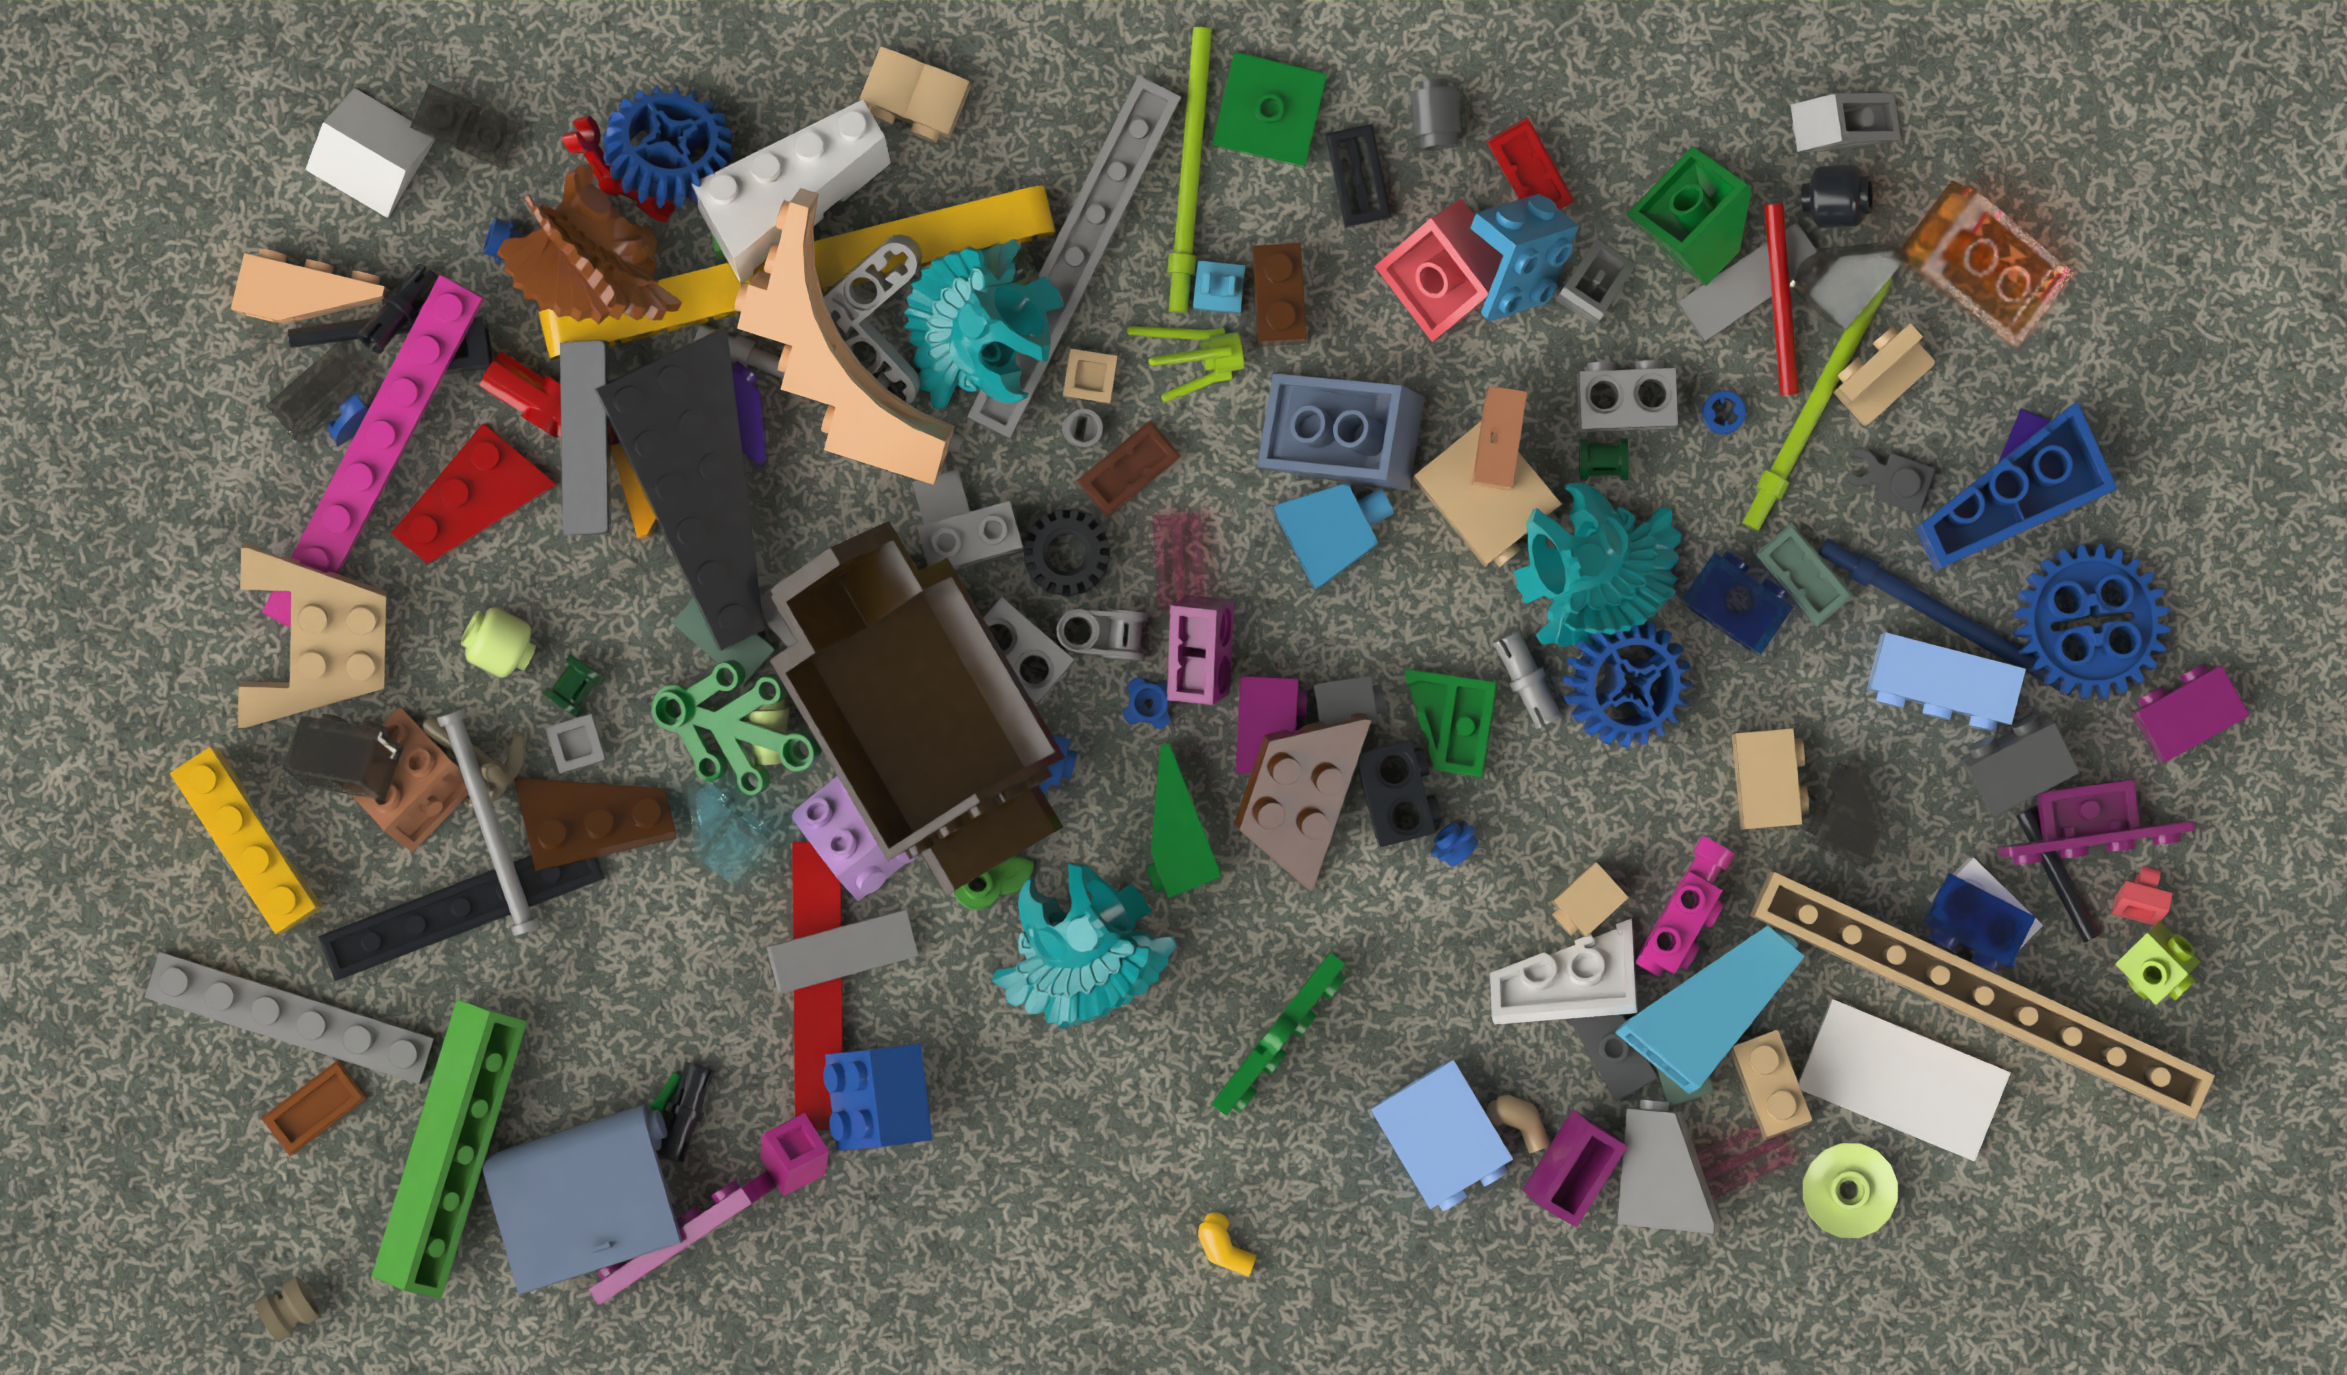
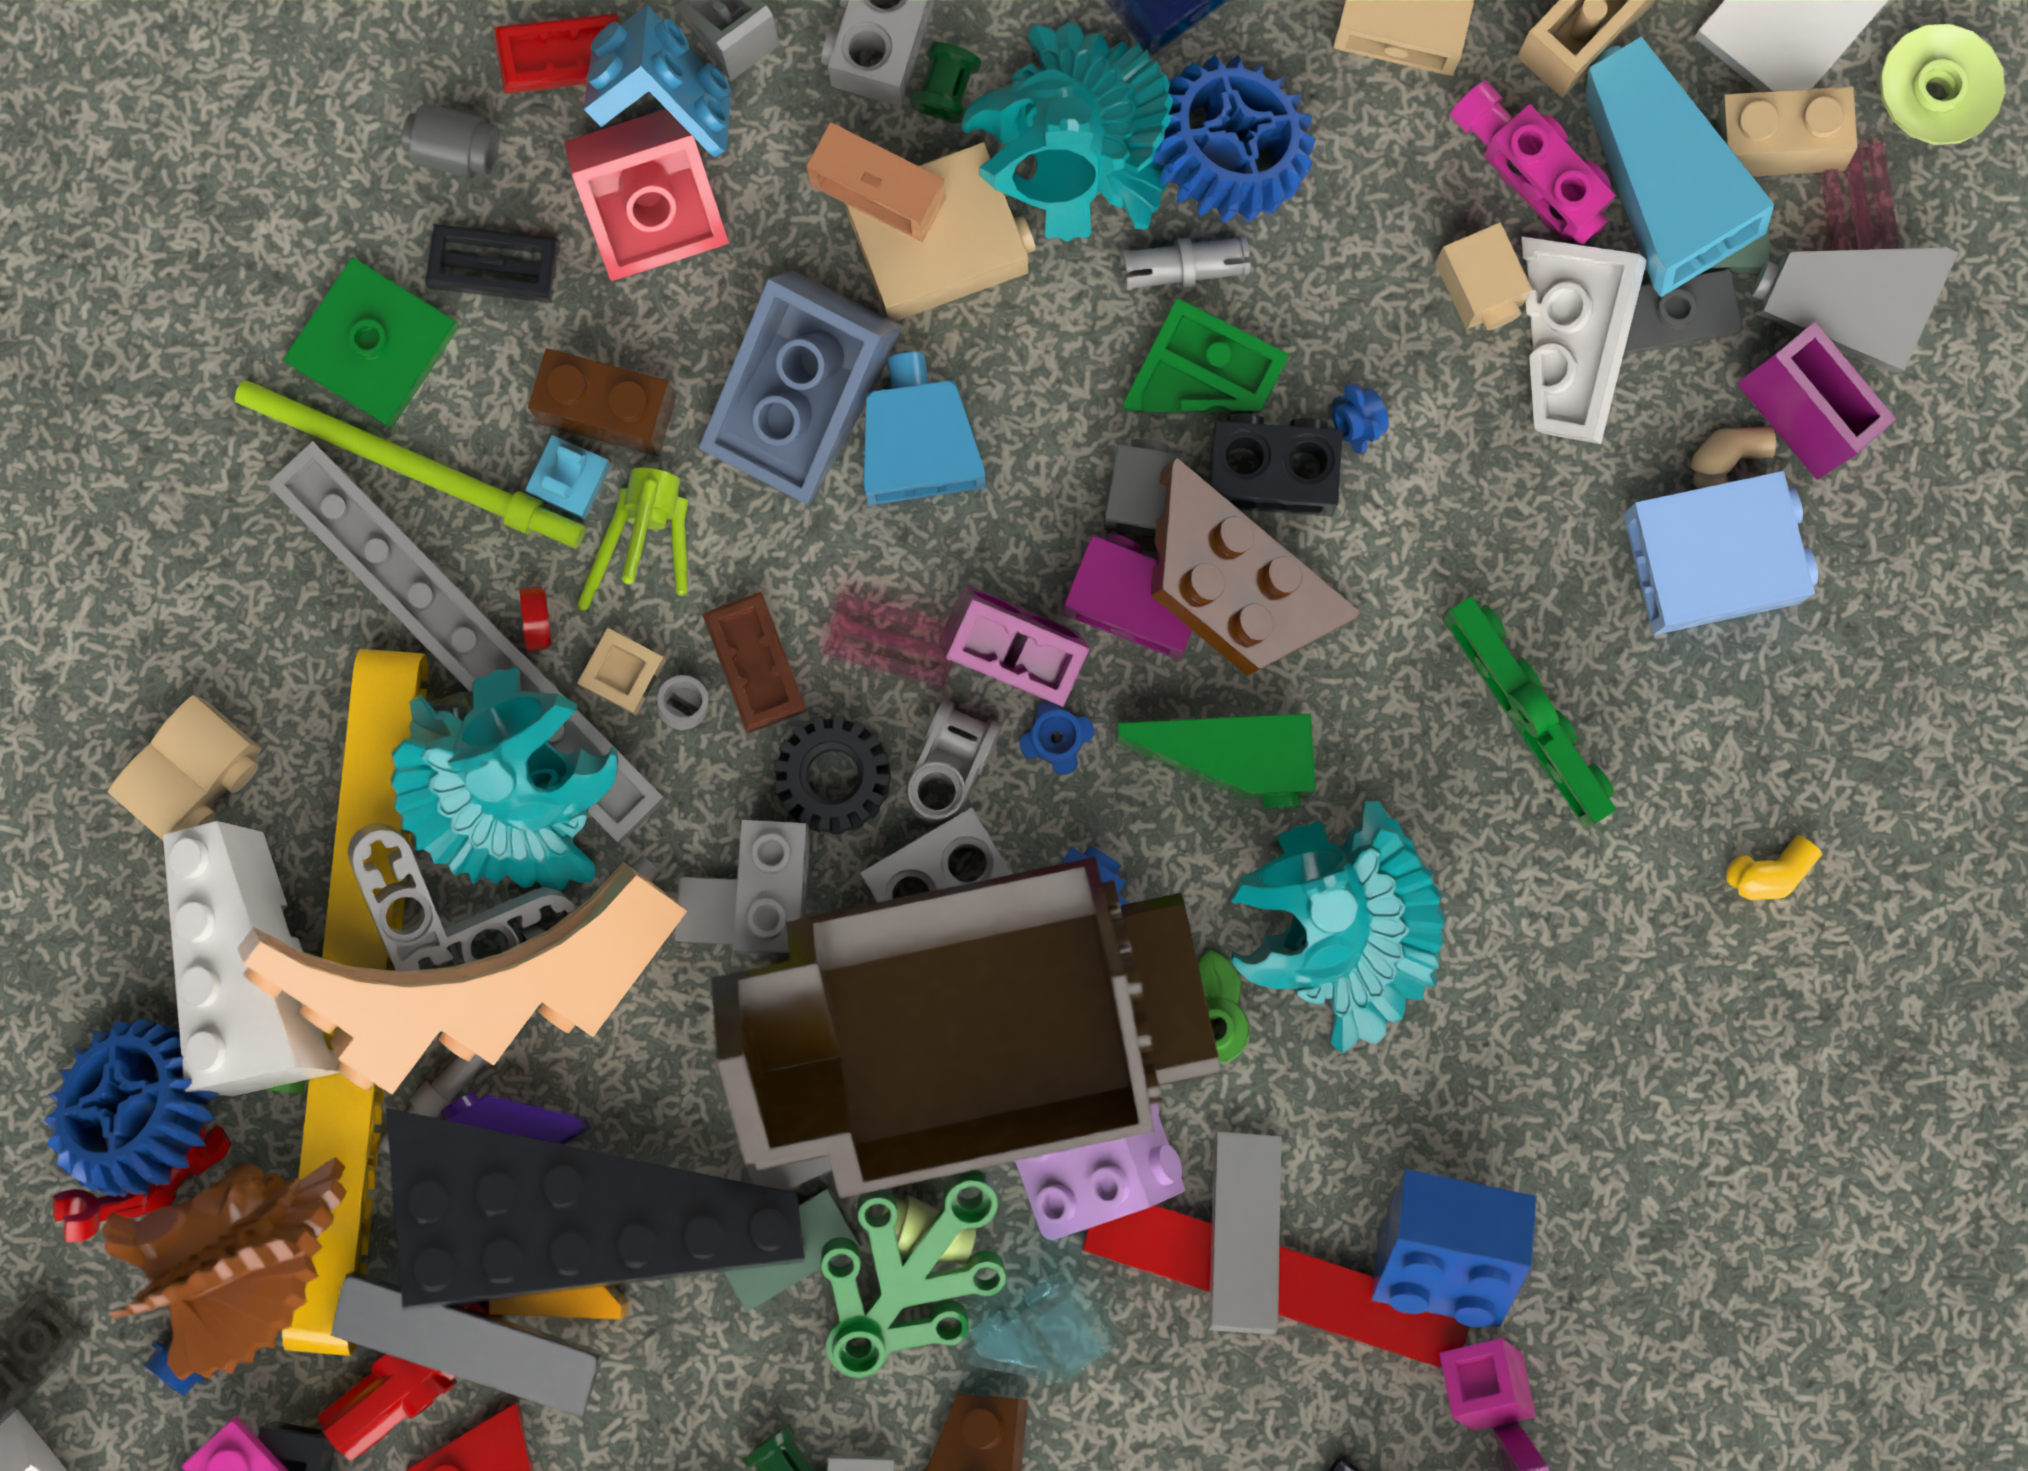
camera: 70 degrees left, 5 degrees down
(1107, 301) = (535, 618): none -> red tile

